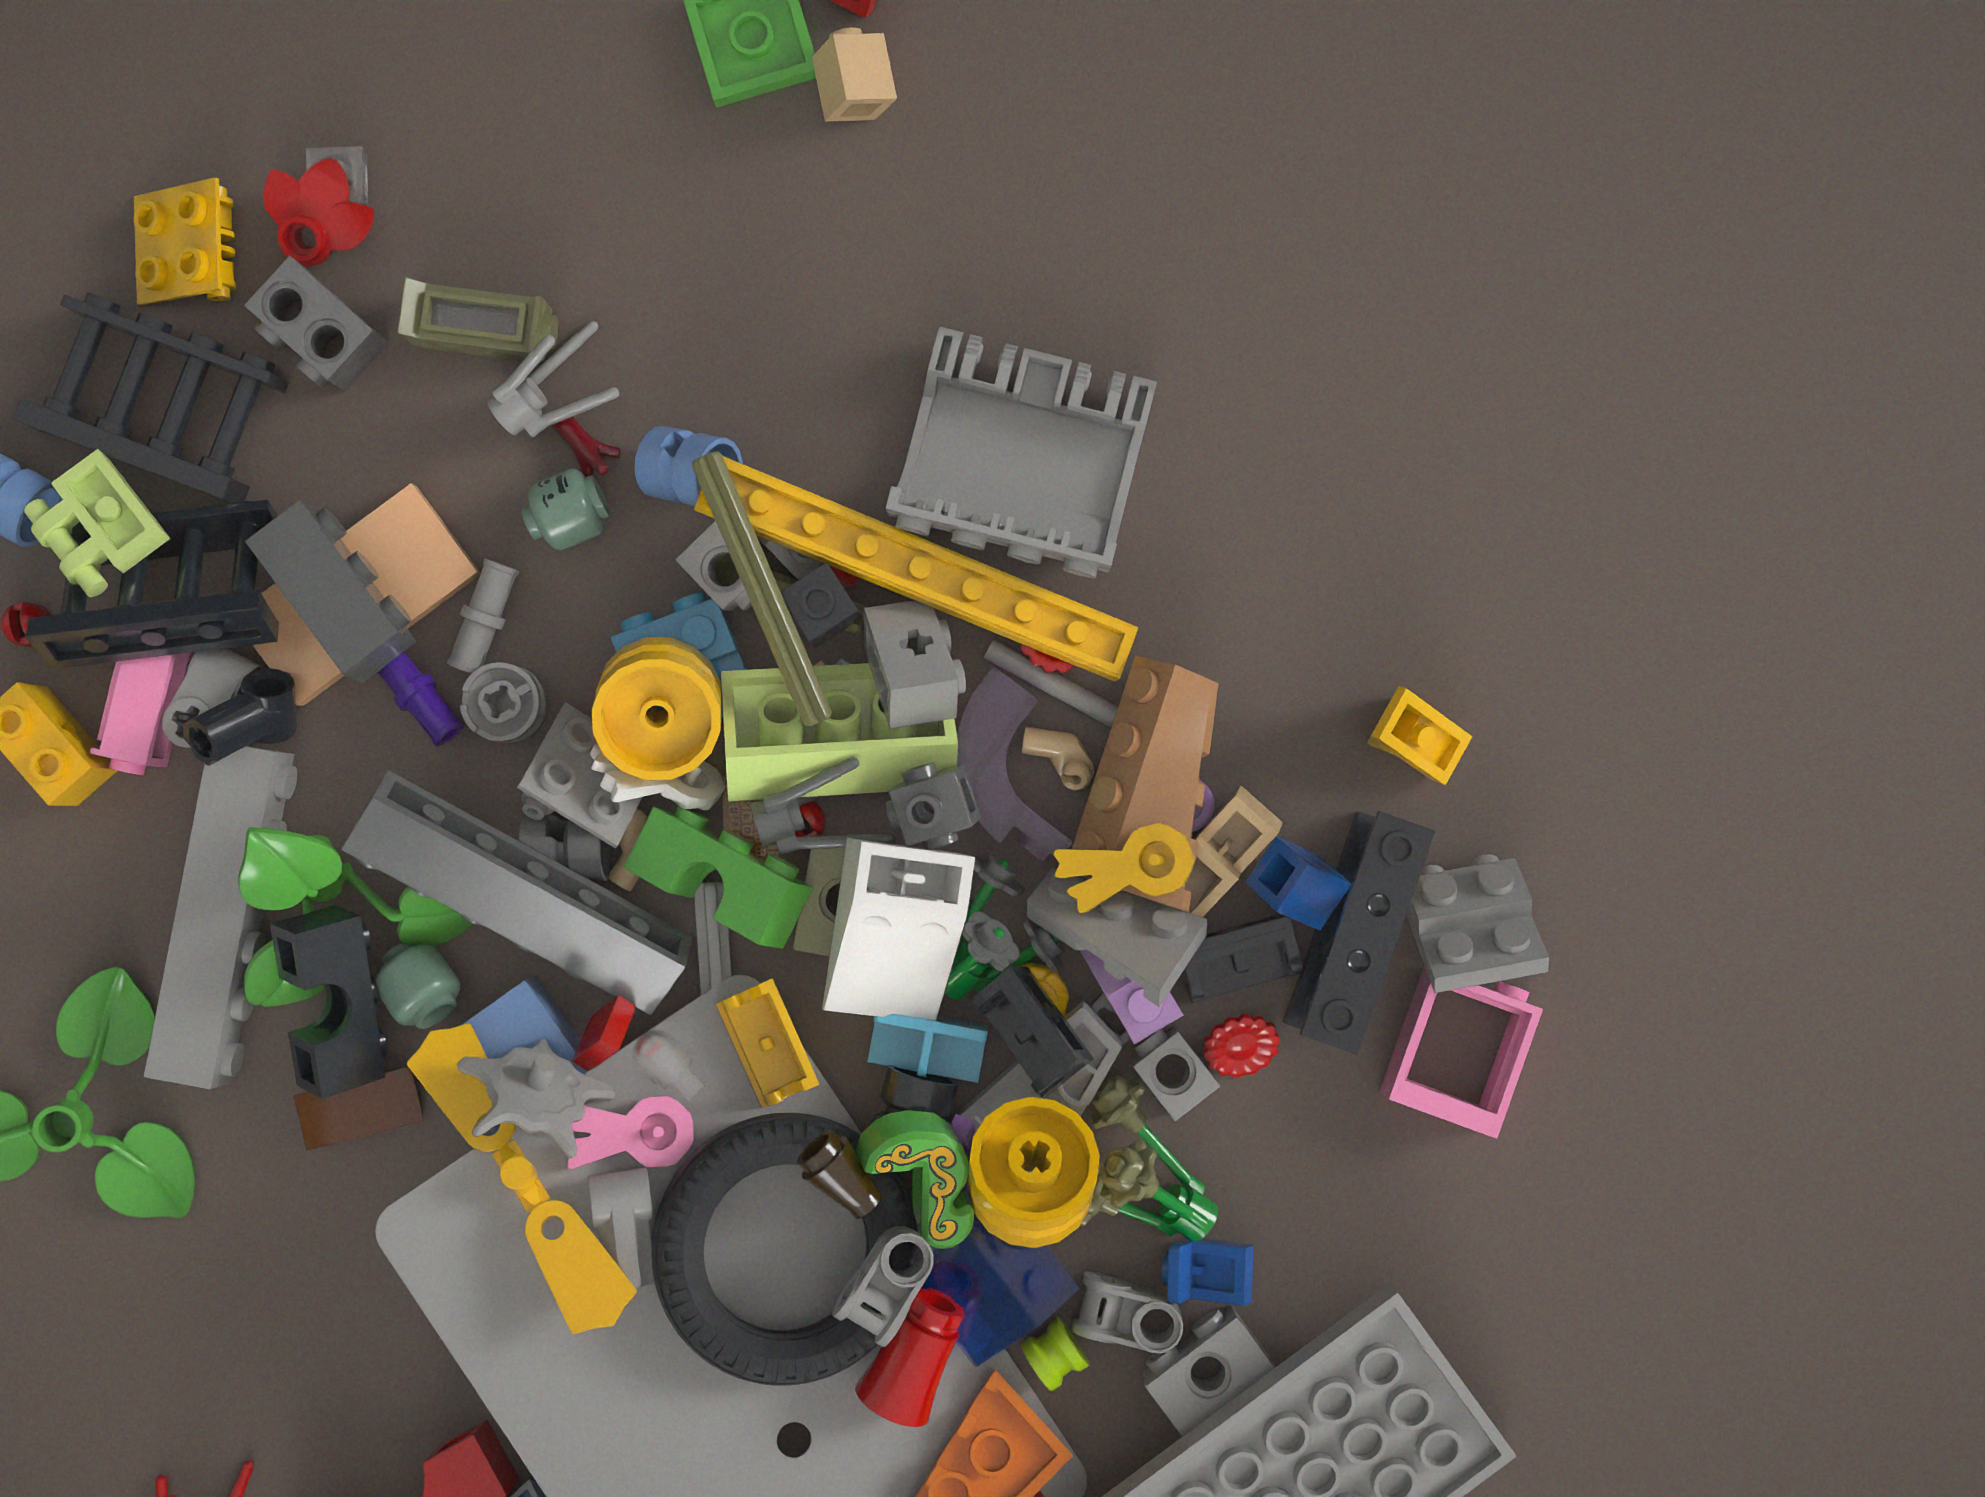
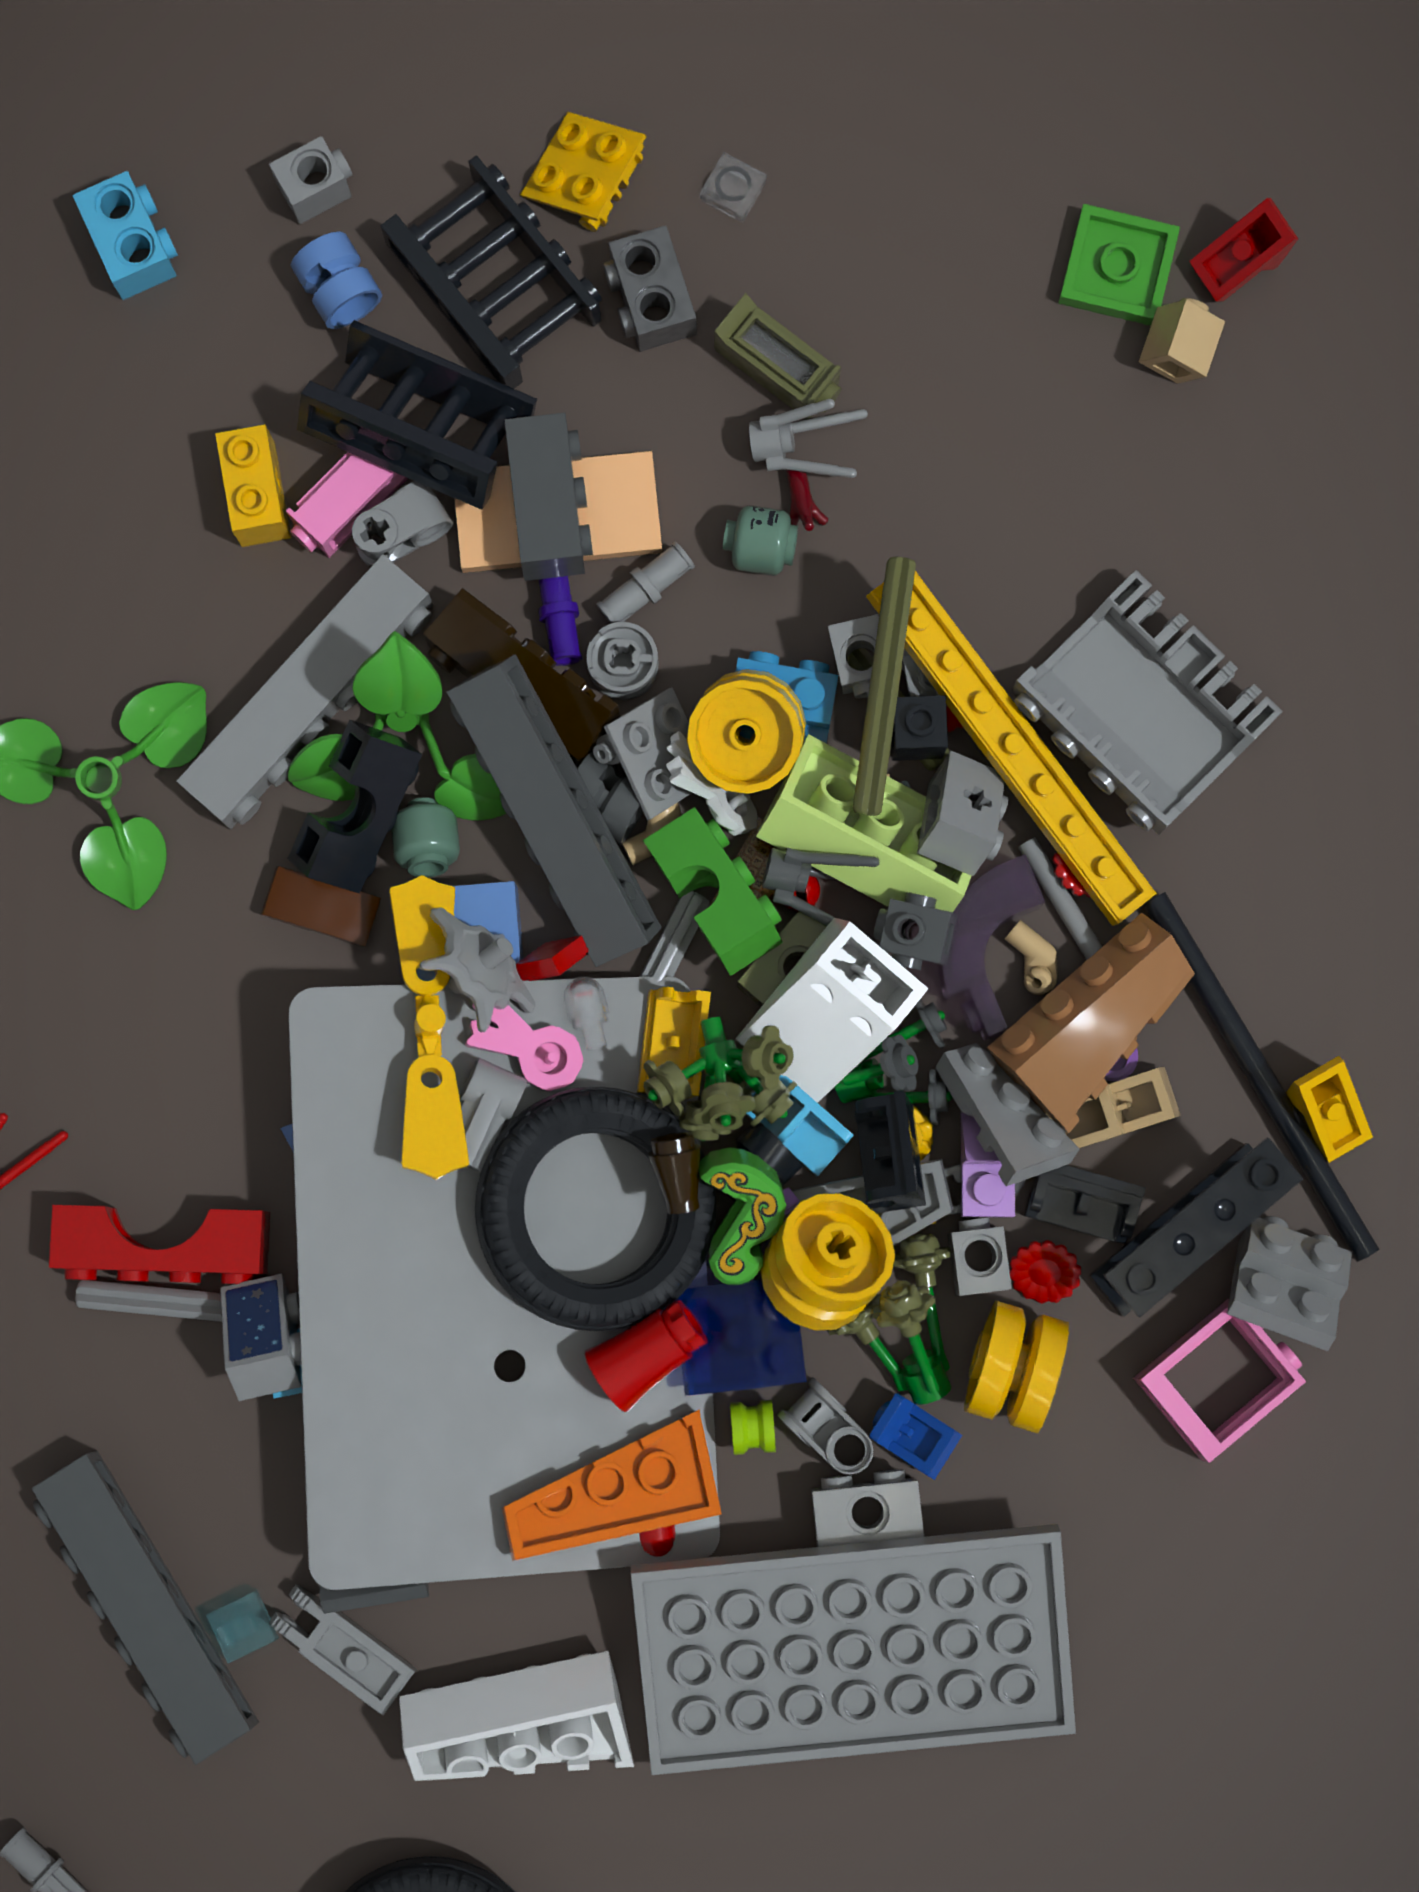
camera: 25 degrees right, 5 degrees down
(10, 625) = (296, 386): red hinge -> none
(110, 513) = (414, 334): yellowish green plate -> none
(259, 714) = (429, 556): black piece -> none
(319, 203) = (710, 201): red plate -> none
(349, 768) = (475, 638): none -> dark brown wedge
(666, 461) = (863, 551): medium blue wheel -> none
(850, 1032) = (729, 1082): none -> olive plant
(884, 1287) = (661, 1278): light grey piece -> none
(1153, 861) = (1065, 1073): yellow piece -> none
(1265, 1157) = (1024, 1369): none -> yellow wheel
(1298, 883) = (1166, 1166): blue brick -> none
(1338, 742) = (1265, 1084): none -> black piece

